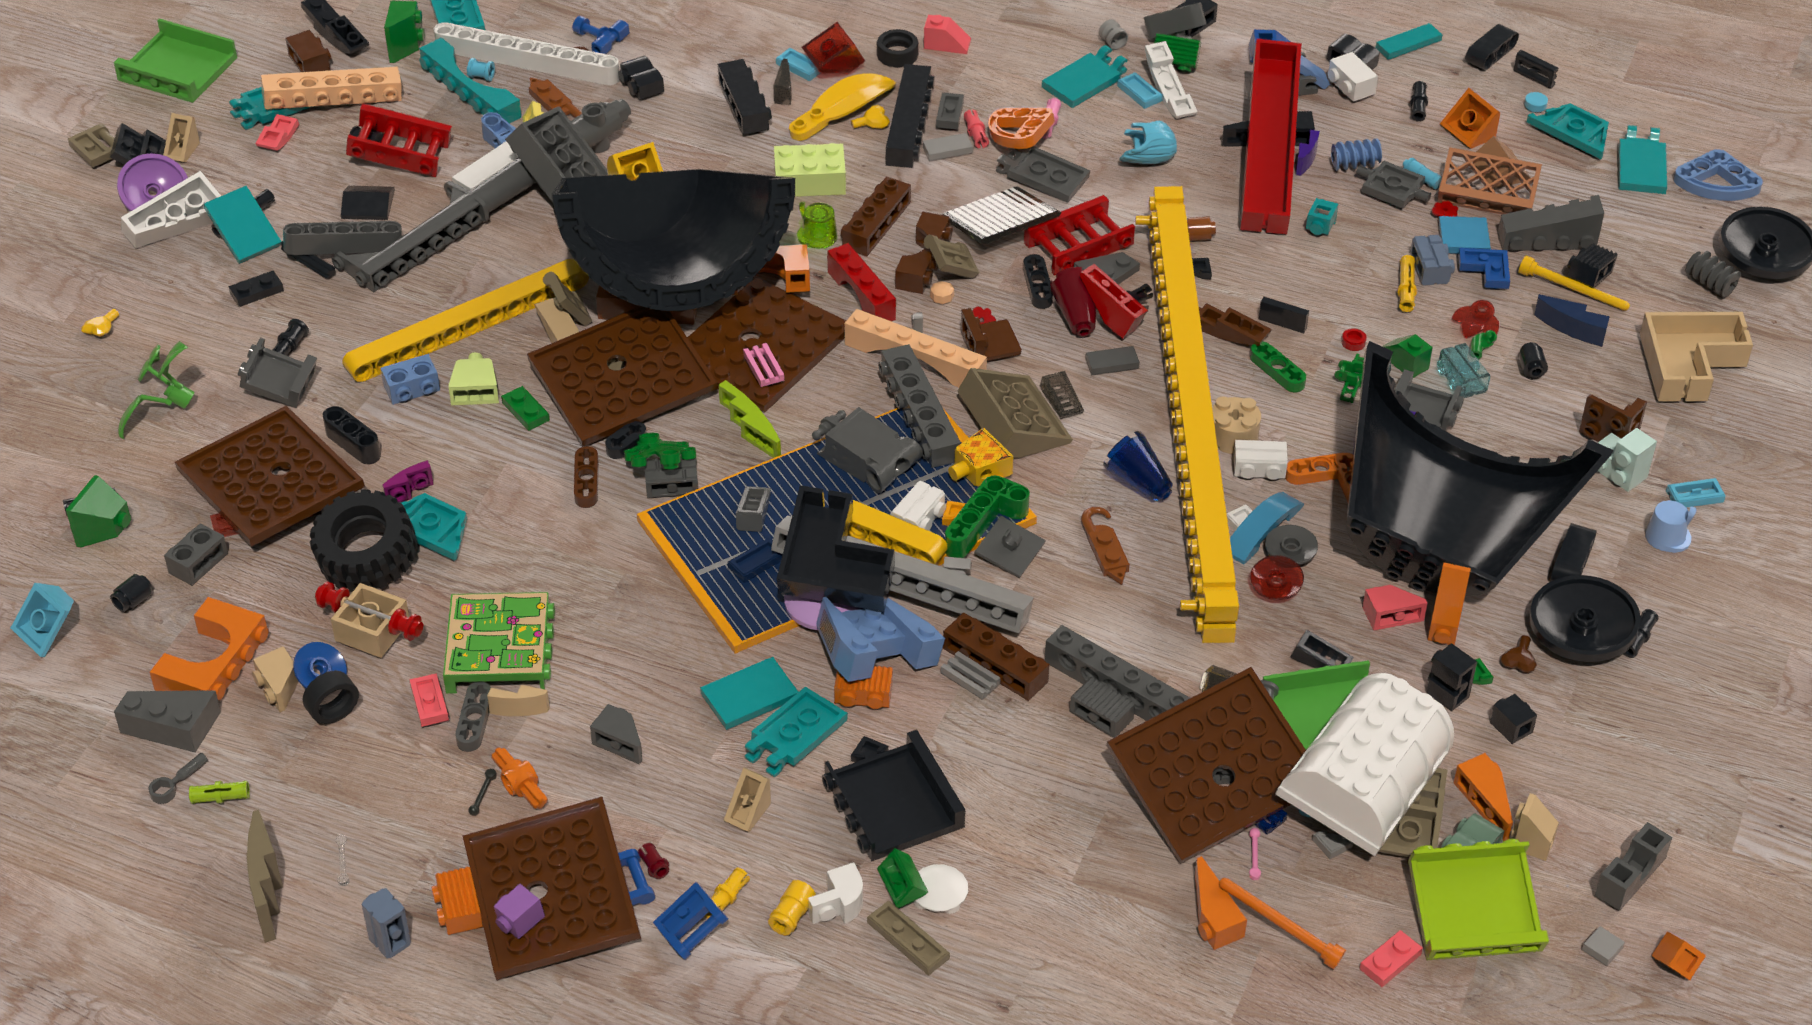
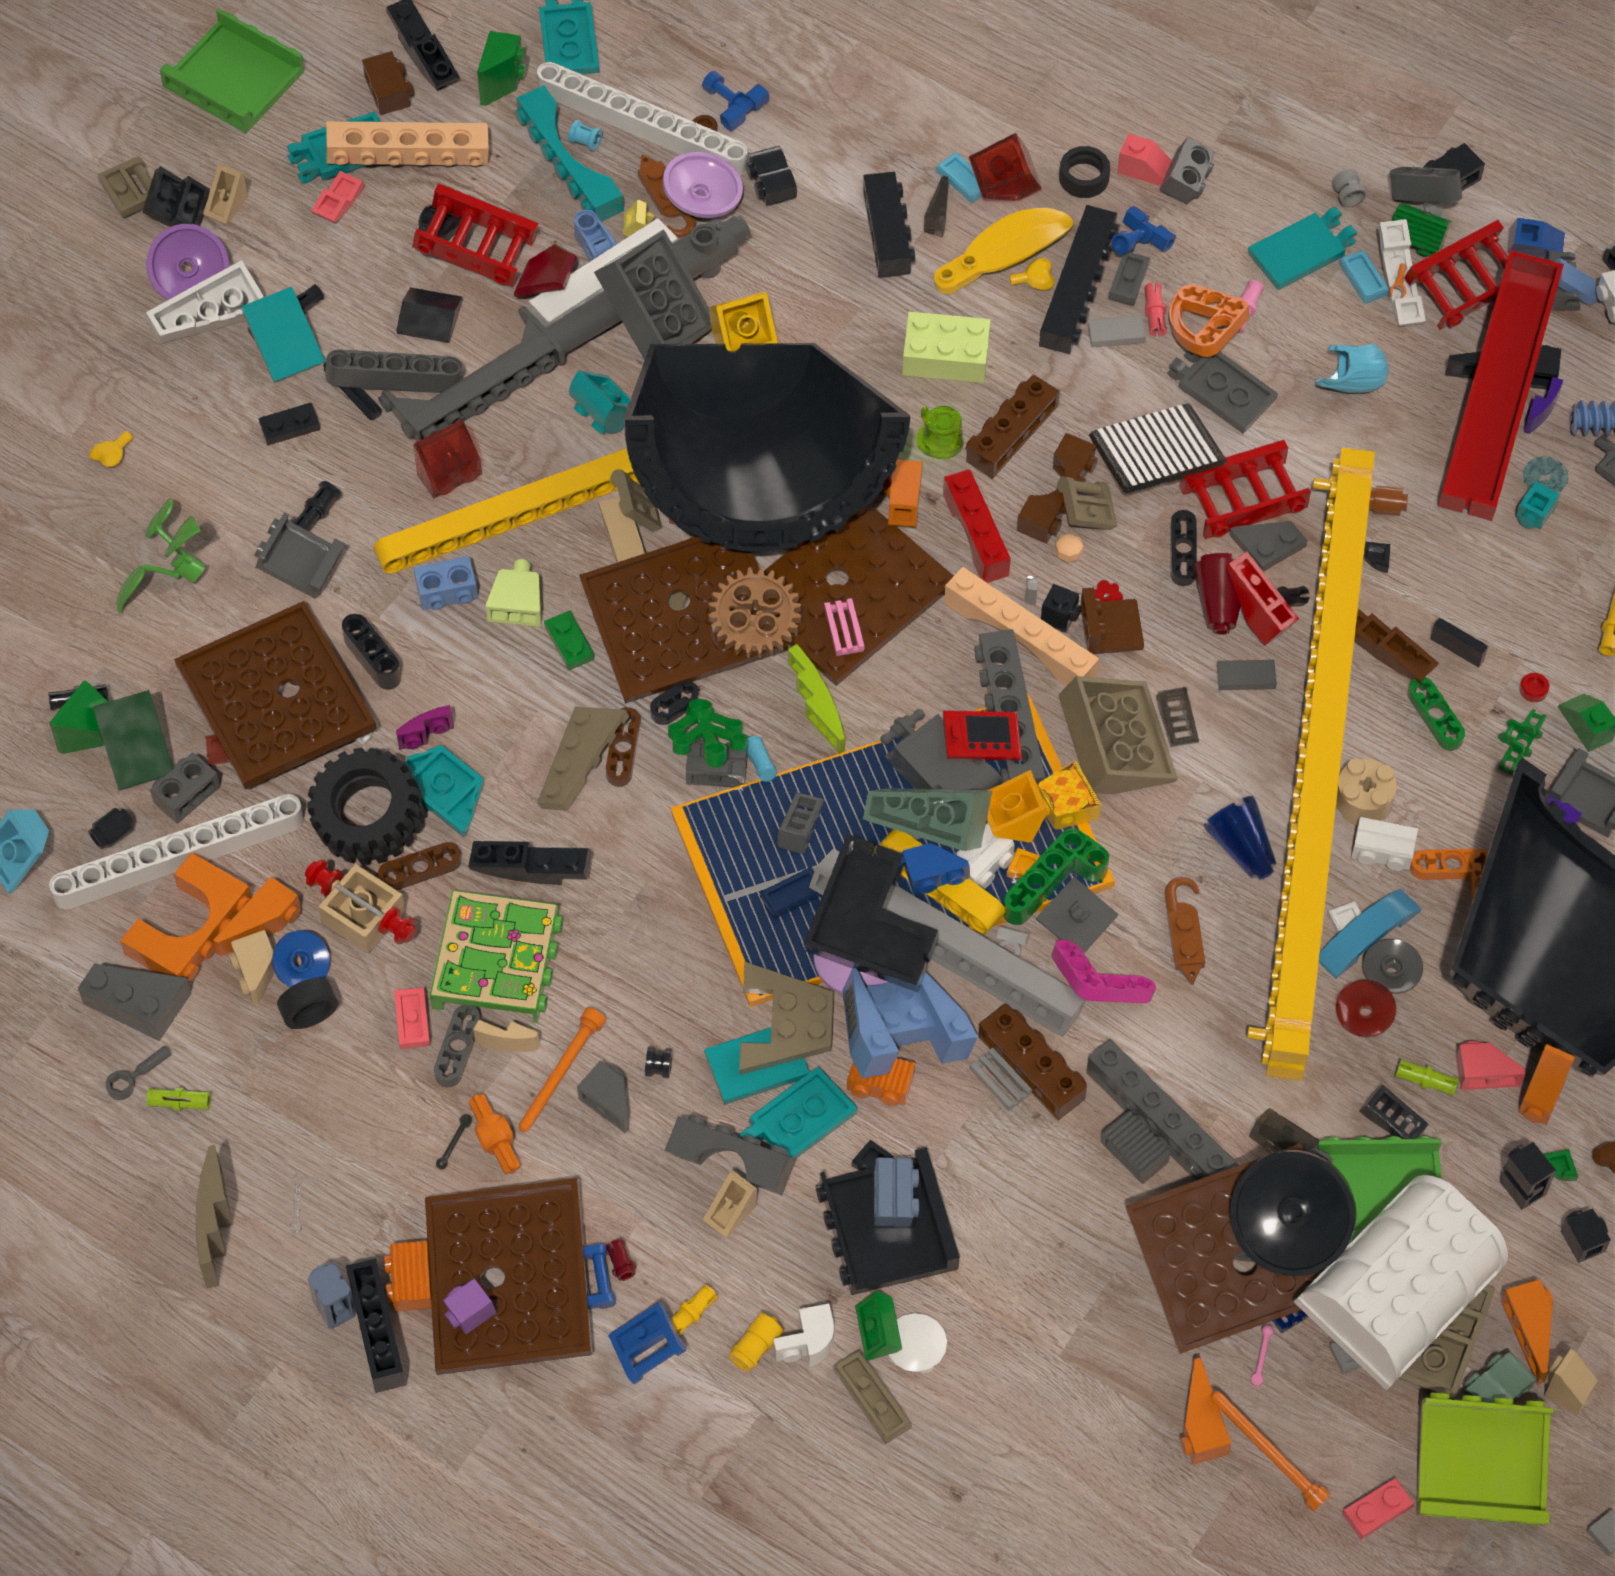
camera: 10 degrees right, 15 degrees up
(143, 520) = (133, 739): none -> dark green tile
(179, 607) = (162, 851): none -> white beam
(286, 629) = (267, 910): none -> orange slope
(398, 290) = (447, 459): none -> clear red slope
(432, 944) = (375, 1325): none -> black brick
(433, 573) = (437, 851): none -> reddish brown beam
(462, 158) = (546, 271): none -> dark red tile
(514, 571) = (529, 864): none -> black slope
(525, 238) = (601, 399): none -> teal brick
(548, 483) = (578, 753): none -> dark tan wing
(584, 85) = (702, 184): none -> lavender dish
(593, 681) = (590, 1023): none -> orange piece
(660, 702) = (658, 1062): none -> black wheel
(685, 358) = (750, 635): none -> medium nougat gear
(707, 755) = (697, 1142): none -> dark grey arch
(709, 467) = (759, 757): none -> medium azure piece
(781, 650) = (799, 1020): none -> dark tan wing
(877, 474) = (936, 815): none -> sand green wedge
(879, 514) = (933, 867): none -> blue slope
(894, 769) = (894, 1192): none -> sand blue brick
(899, 417) = (982, 735): none -> red container
(941, 466) = (1016, 808): none -> light orange slope
(946, 327) = (1060, 608): none -> black brick
(948, 77) = (1142, 231): none -> blue bar
(981, 36) = (1188, 170): none -> dark grey brick
(1041, 588) = (1095, 986): none -> dark pink beam
(1169, 87) = (1399, 281): none -> orange hand
(1204, 67) = (1446, 260): none -> red fence
(1258, 718) = (1293, 1213): none -> black dish
(1321, 192) = (1546, 466): none -> clear light blue gear
(1342, 622) = (1427, 1077): none -> lime pin

